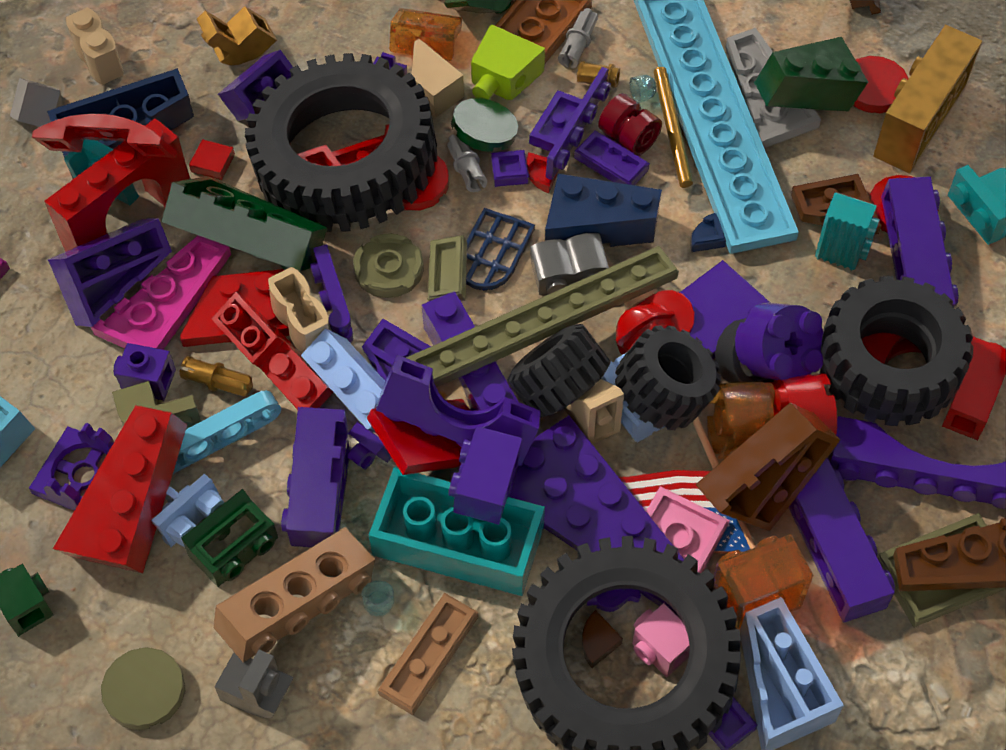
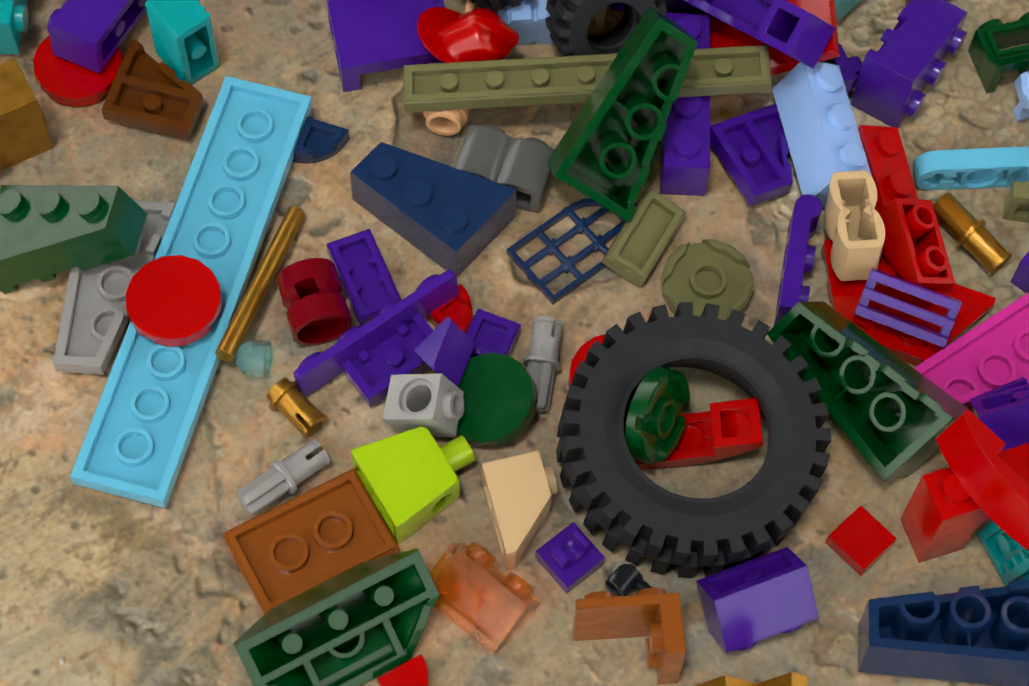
camera: 155 degrees left, 5 degrees up
(235, 280) = (900, 324): none -> dark purple tile
(326, 35) = (645, 614): none -> dark orange bracket
(370, 130) = (655, 417): none -> dark green tile
(498, 281) = (626, 115): none -> dark green wedge
(520, 96) = (424, 402): none -> light grey brick
(524, 120) = (447, 350): none -> dark purple slope
(712, 81) = (173, 300): none -> red tile

